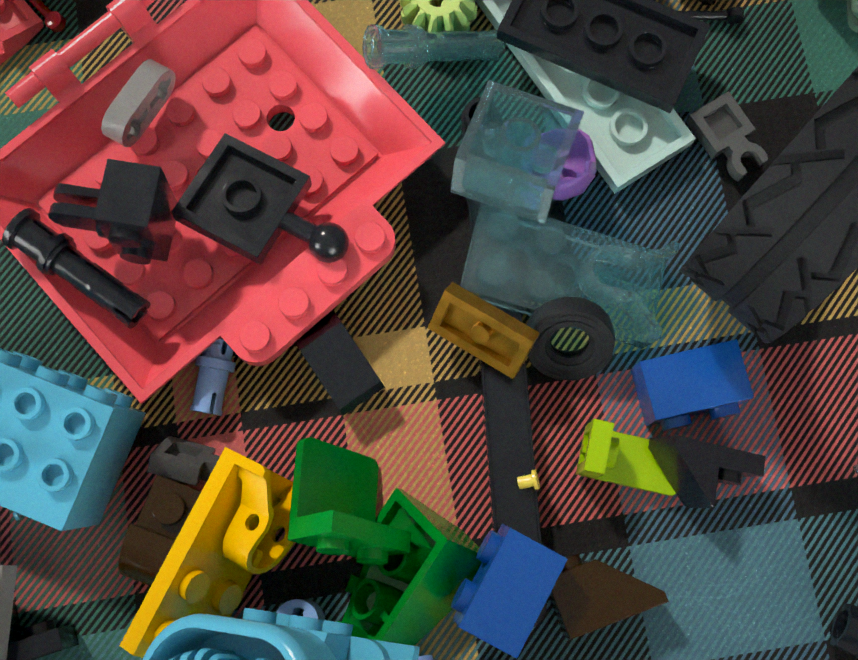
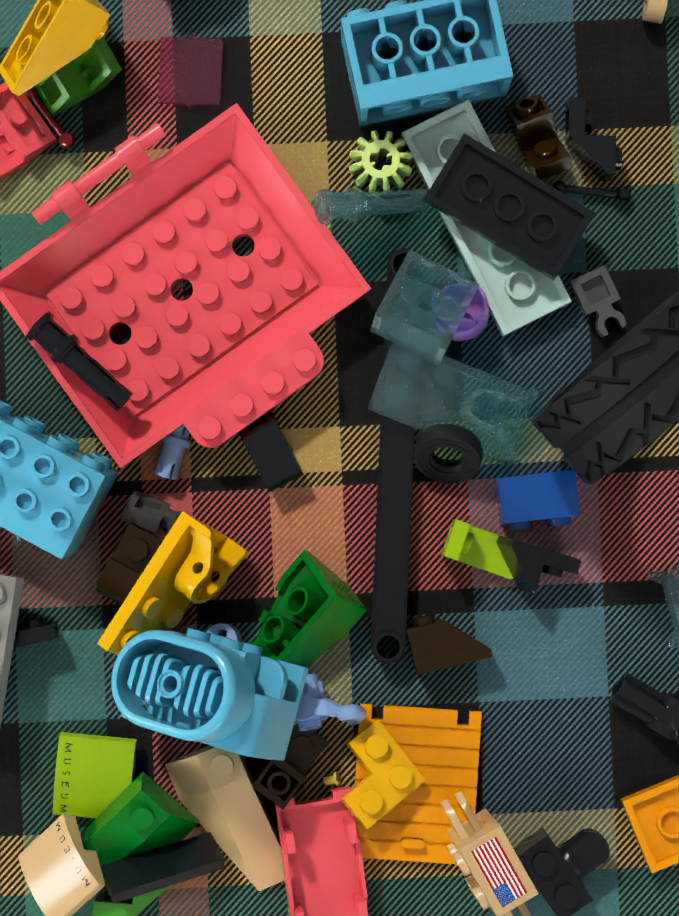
camera: 10 degrees right, 10 degrees up
(127, 210) = (126, 326): black brick -> none
(138, 103) = (134, 229): light grey beam -> none
(249, 199) = (214, 320): black plate -> none
(337, 505) = (260, 558): green bracket -> none
(483, 330) = (382, 441): pearl gold plate -> none
(507, 589) = (376, 634): blue brick -> none
(529, 480) = (403, 557): light yellow piece -> none

